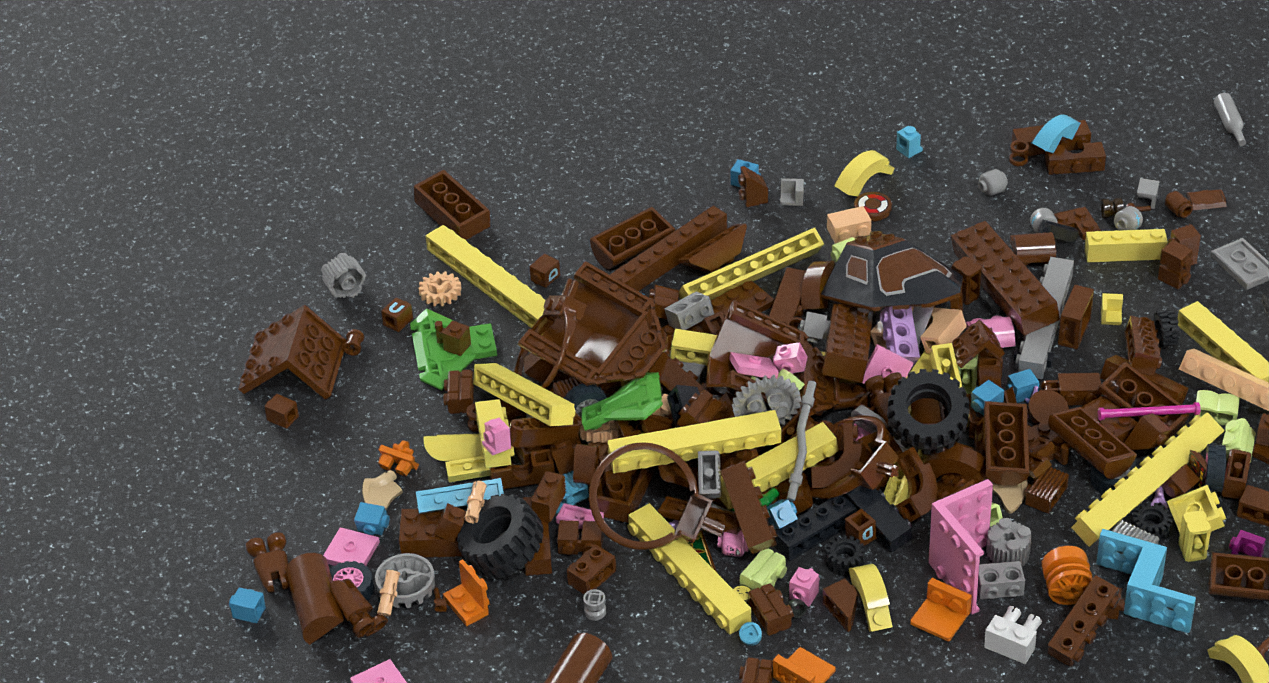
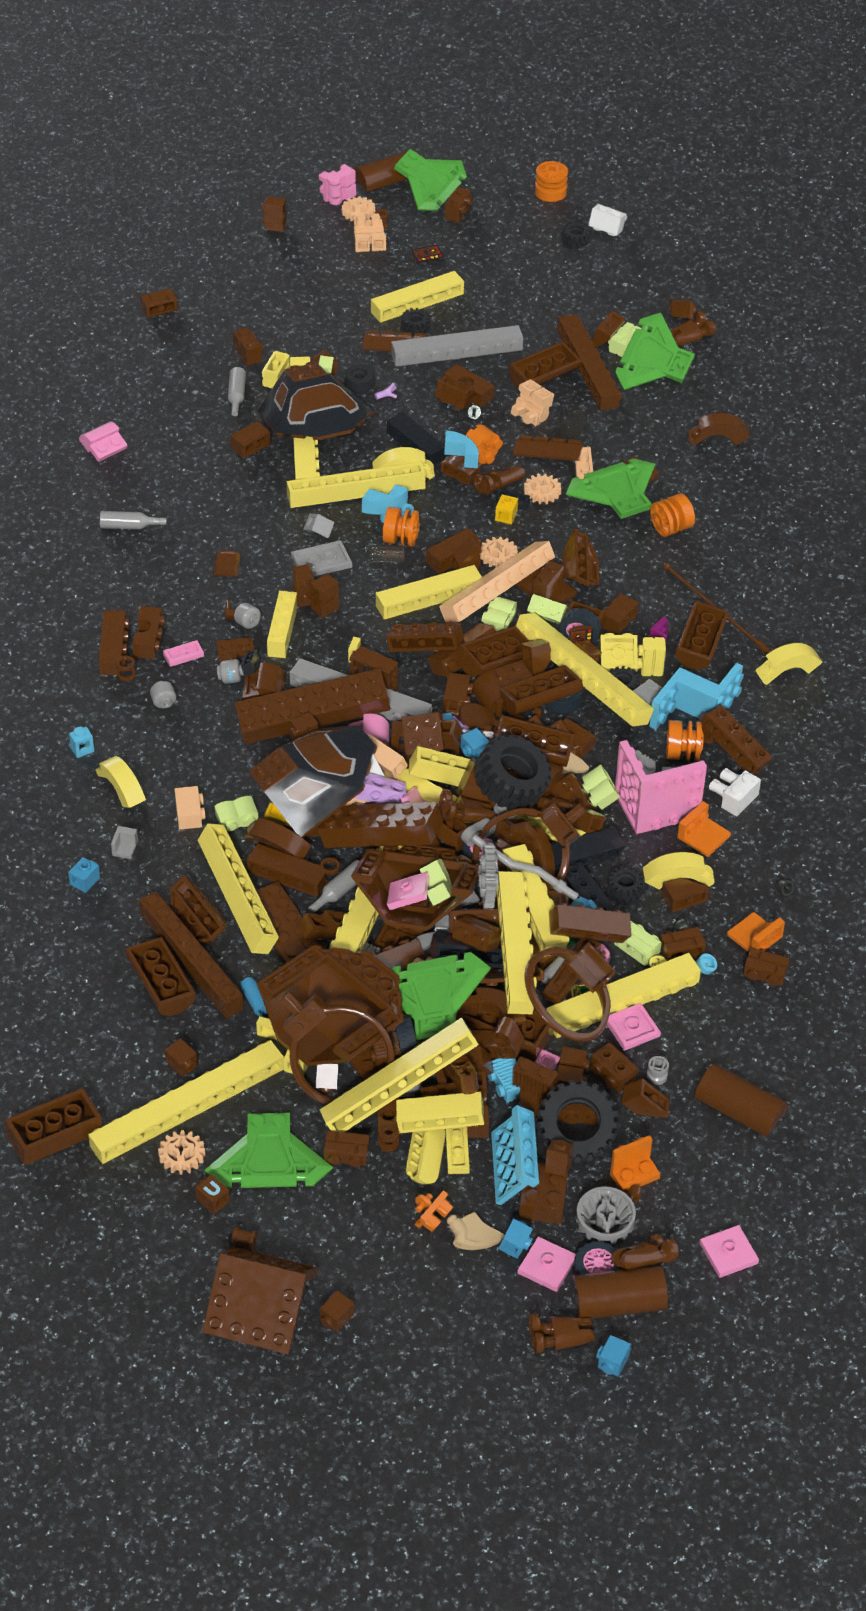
camera: 85 degrees left, 5 degrees up
(343, 276) = (146, 1234): light grey brick -> none
(388, 592) = (635, 1221): light nougat pin -> none
(454, 337) = (274, 1140): reddish brown brick -> none
(475, 502) = (545, 1128): light nougat pin -> none
(496, 436) = (475, 1094): bright pink brick -> none
(554, 600) = (645, 1099): none -> reddish brown slope
(650, 581) = (632, 1026): none -> bright pink plate
(663, 298) = (263, 961): reddish brown brick -> none
(689, 311) = (294, 940): light grey brick -> none
(709, 474) = (550, 935): light grey brick -> none
(753, 188) = (114, 871): reddish brown slope -> none
(790, 357) = (407, 862): bright pink brick -> none
(804, 585) = (660, 916): bright pink brick -> none
(815, 327) = (345, 848): light grey brick -> none
(861, 527) = (601, 864): reddish brown brick -> none
(876, 205) = (161, 787): tile -> none
(1054, 130) = (129, 625): medium azure brick -> none
(1057, 188) = (183, 653): none -> bright pink plate
(1110, 208) = (226, 623): dark brown wheel -> none
(1148, 190) = (214, 591): light grey panel -> none
(1161, 410) = (513, 674): dark pink bar -> none
(1167, 327) = (401, 612): black tyre -> none
(1178, 204) = (235, 579): reddish brown brick -> none

